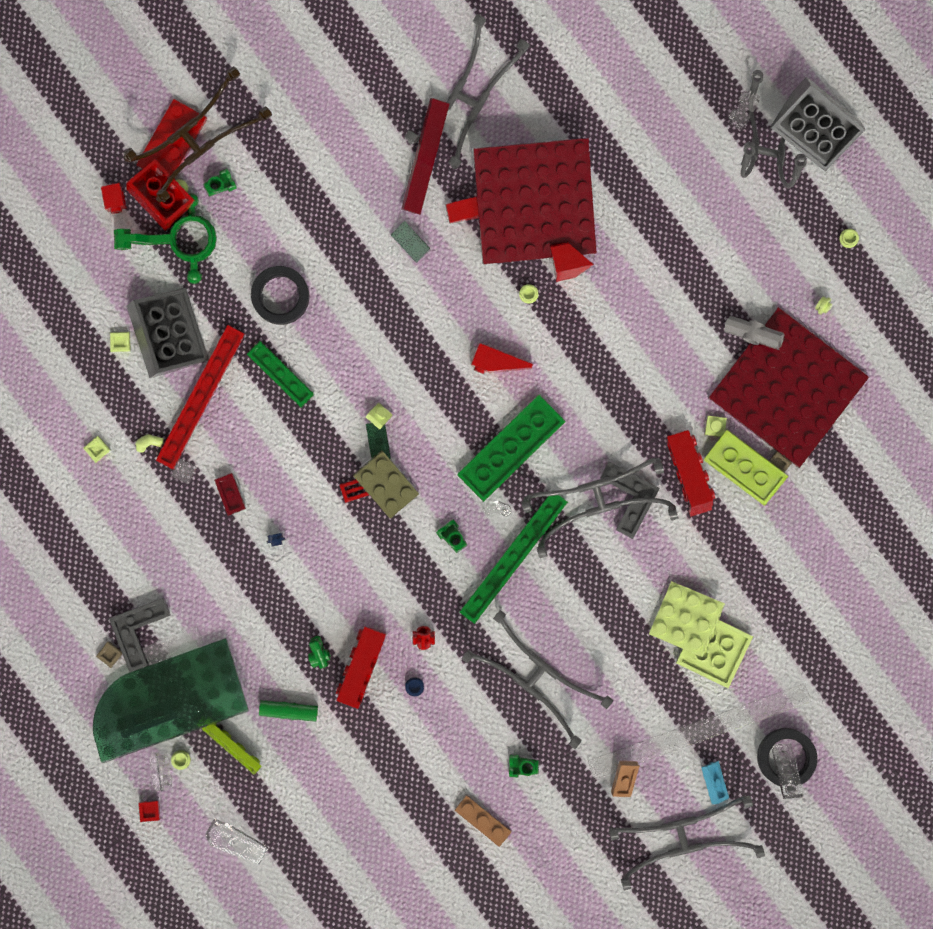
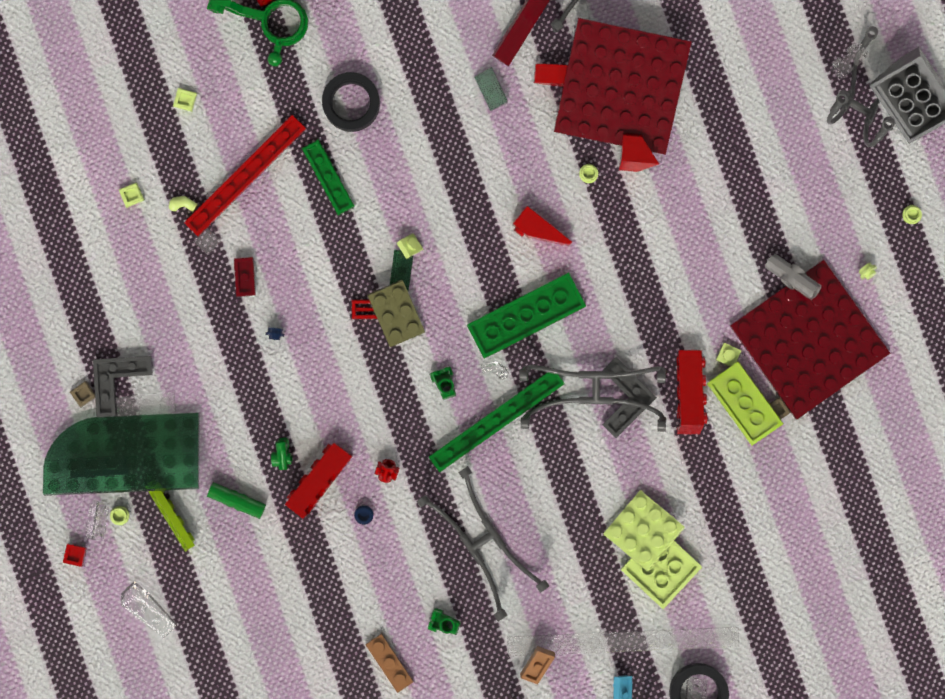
camera: 20 degrees right, 0 degrees up
(167, 332) = (232, 104): dark grey slope -> none

